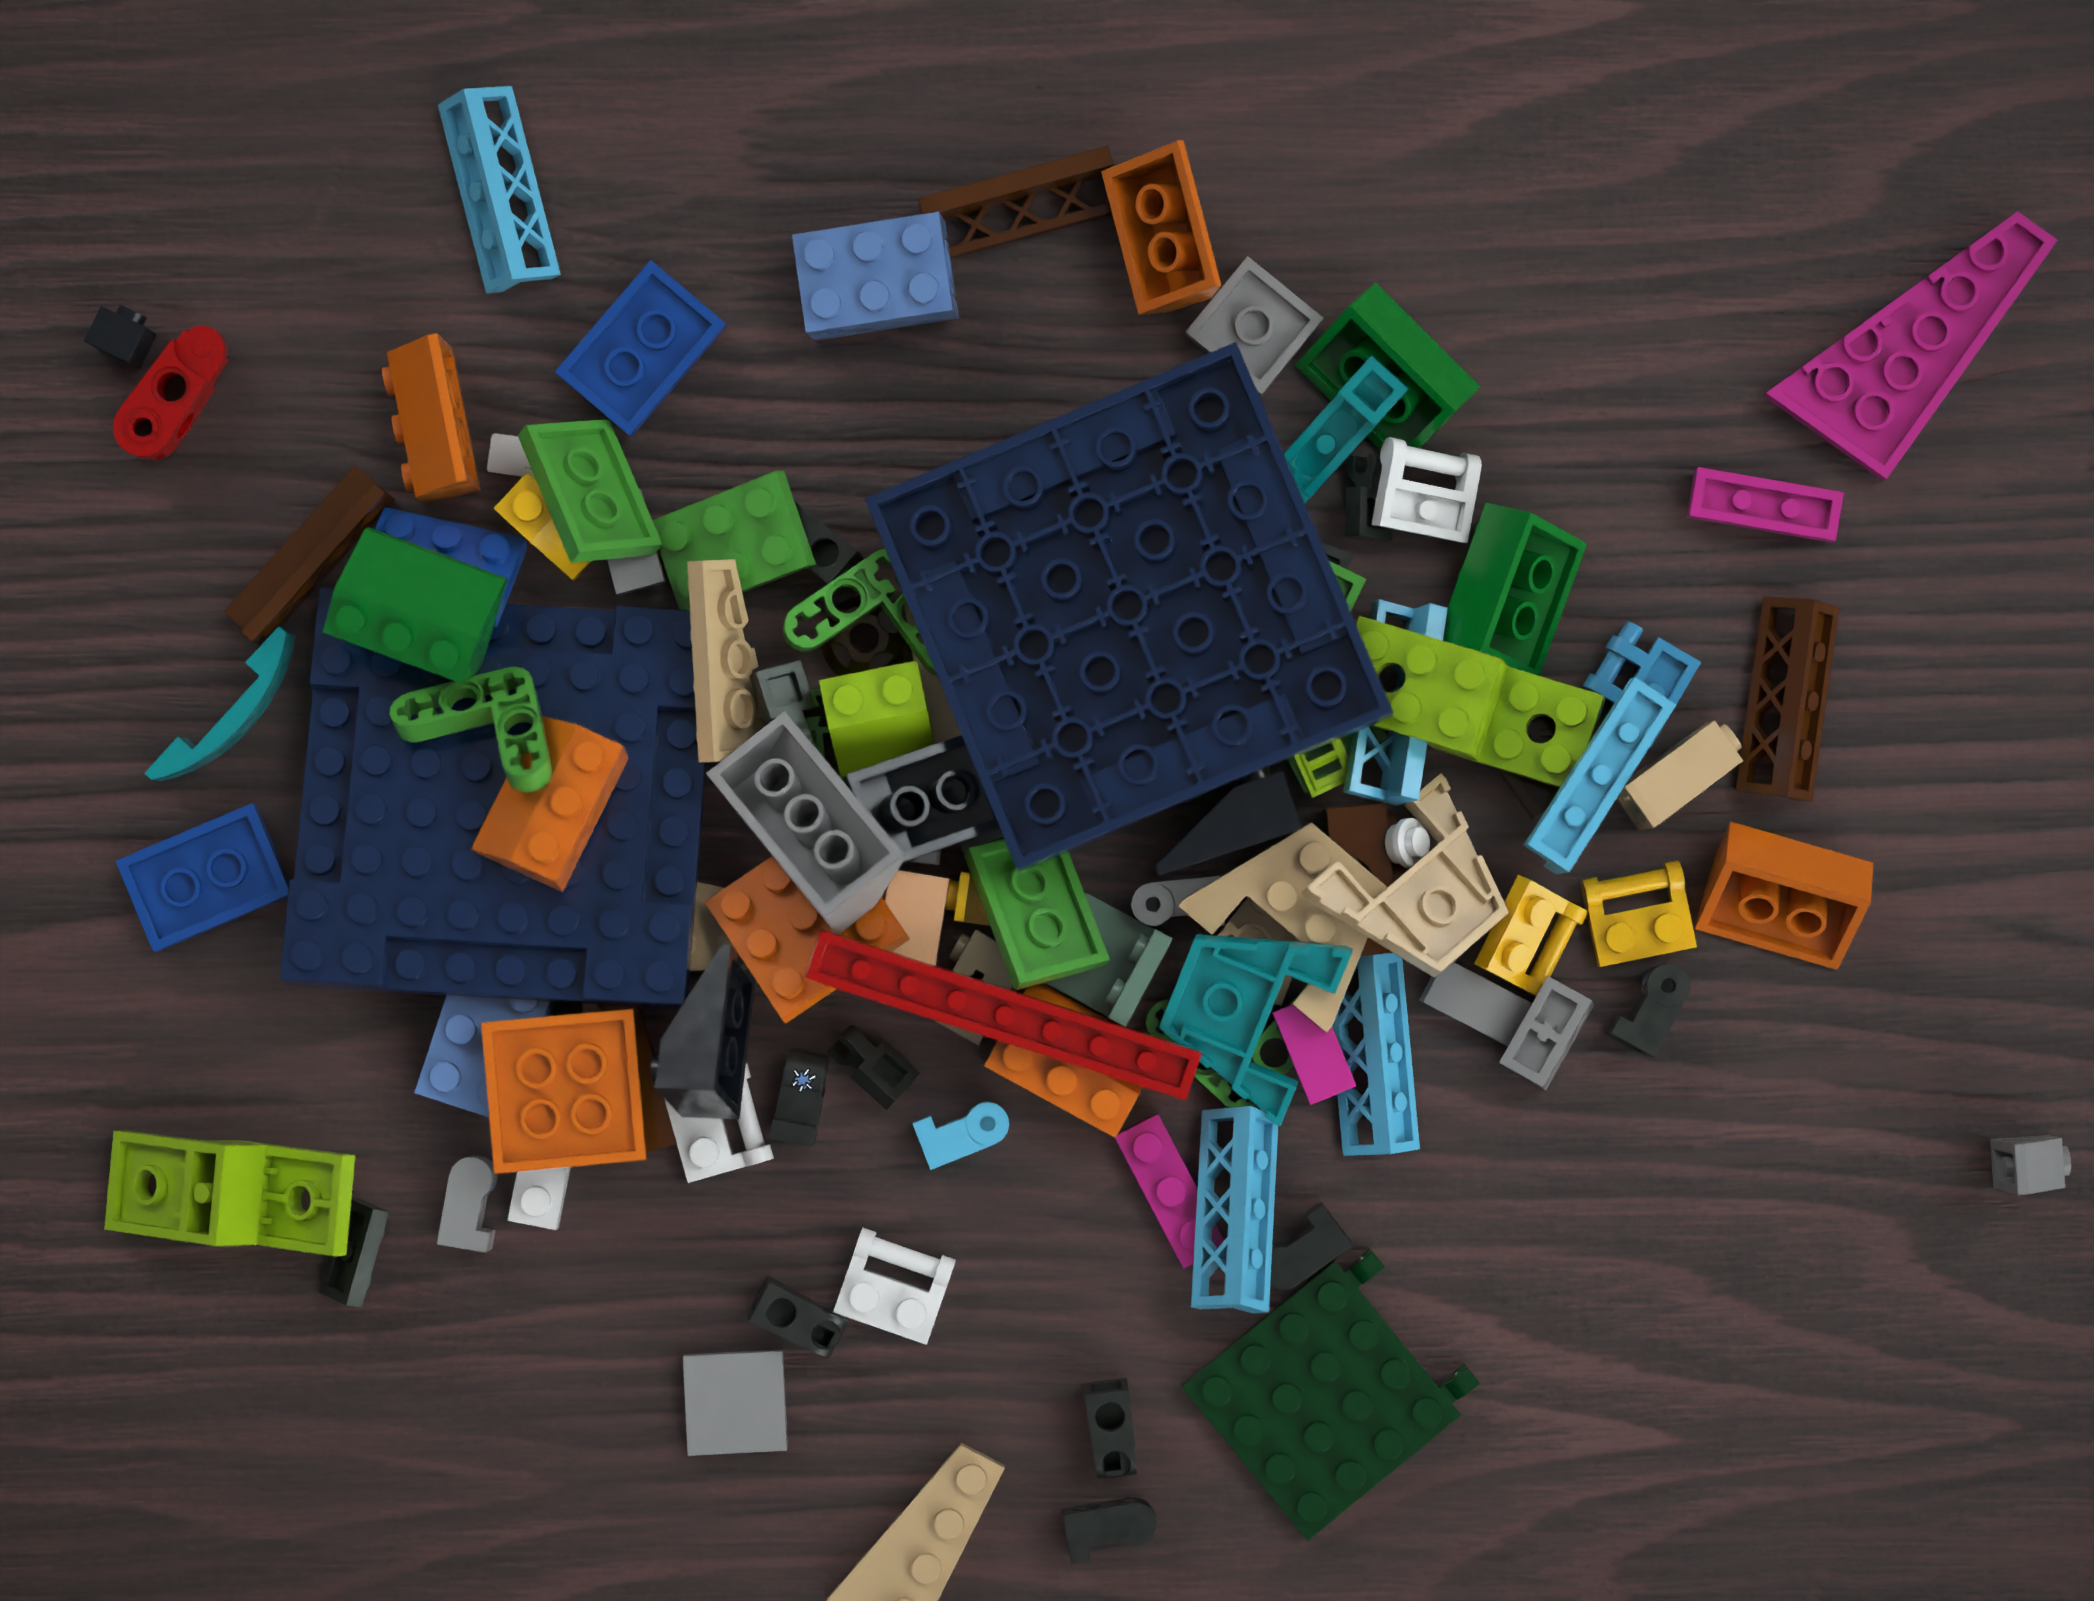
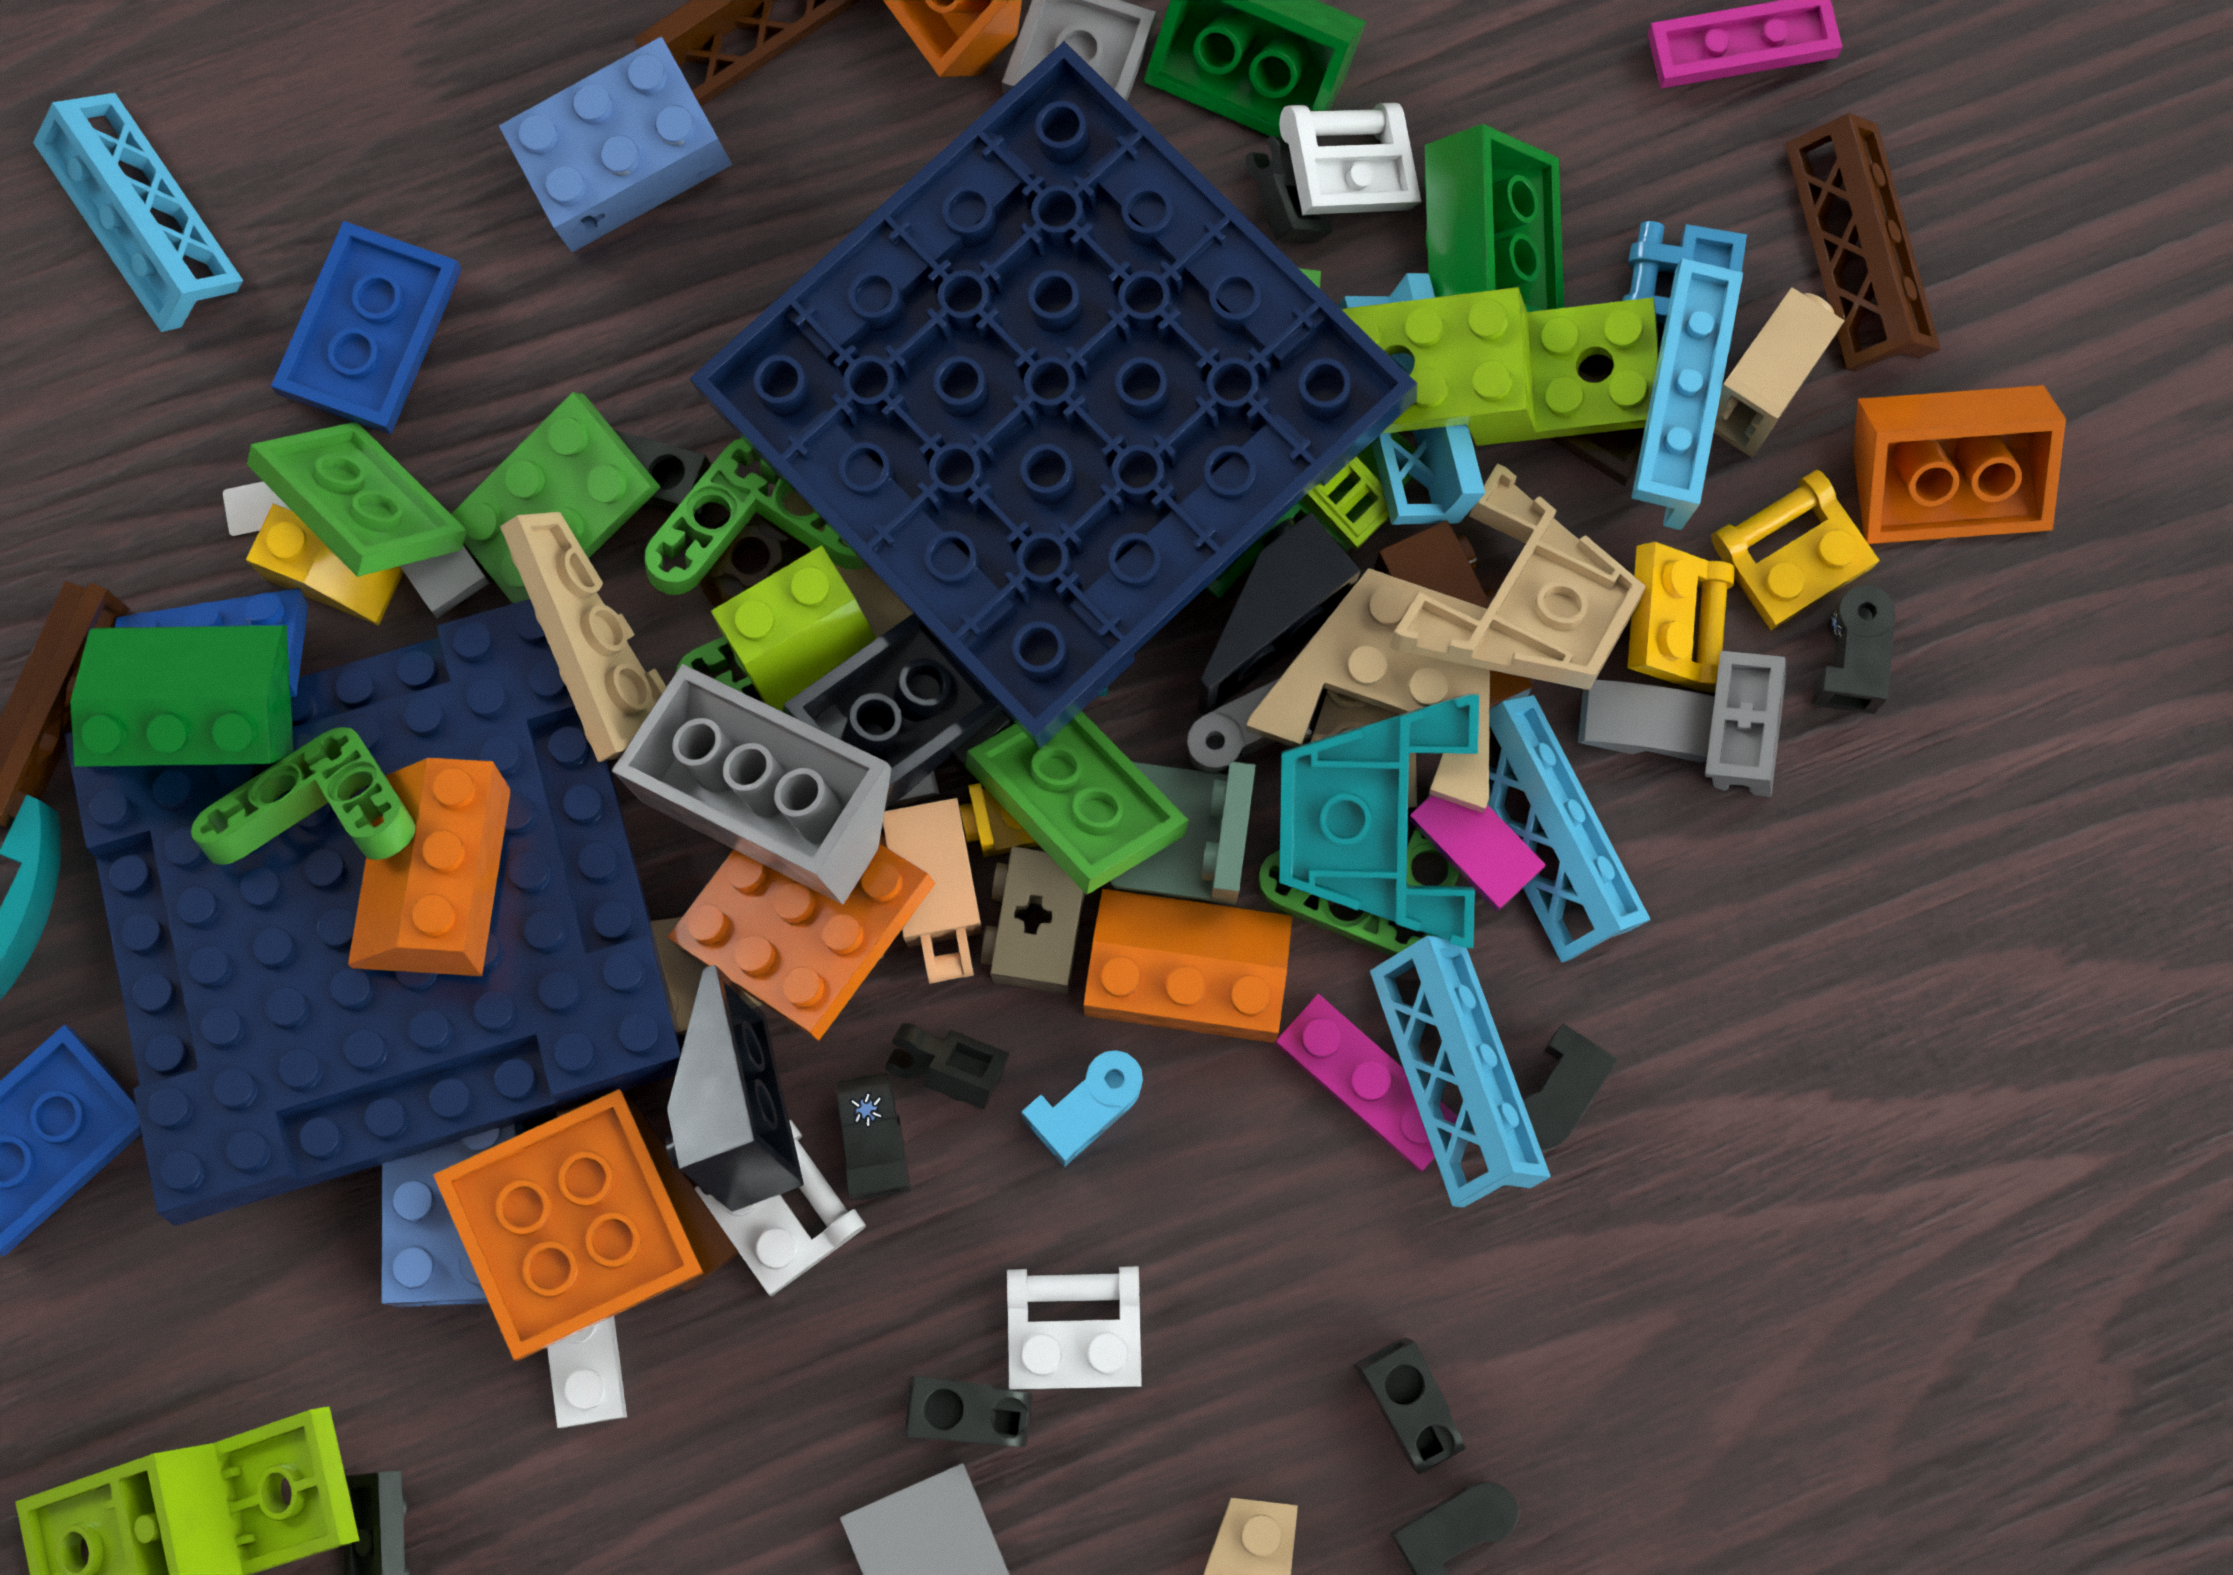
camera: 20 degrees left, 10 degrees down
(431, 420) = (138, 491): orange slope -> none
(465, 1205) = (497, 1425): light grey leg -> none
(783, 690) = (669, 644): pearl dark grey plate -> none
(1002, 1014) = (1081, 926): red plate -> none
(1324, 1397) = (1658, 1267): dark green plate -> none
(1343, 425) = (1231, 103): teal slope -> none
(1407, 842) = (1490, 554): white plate -> none

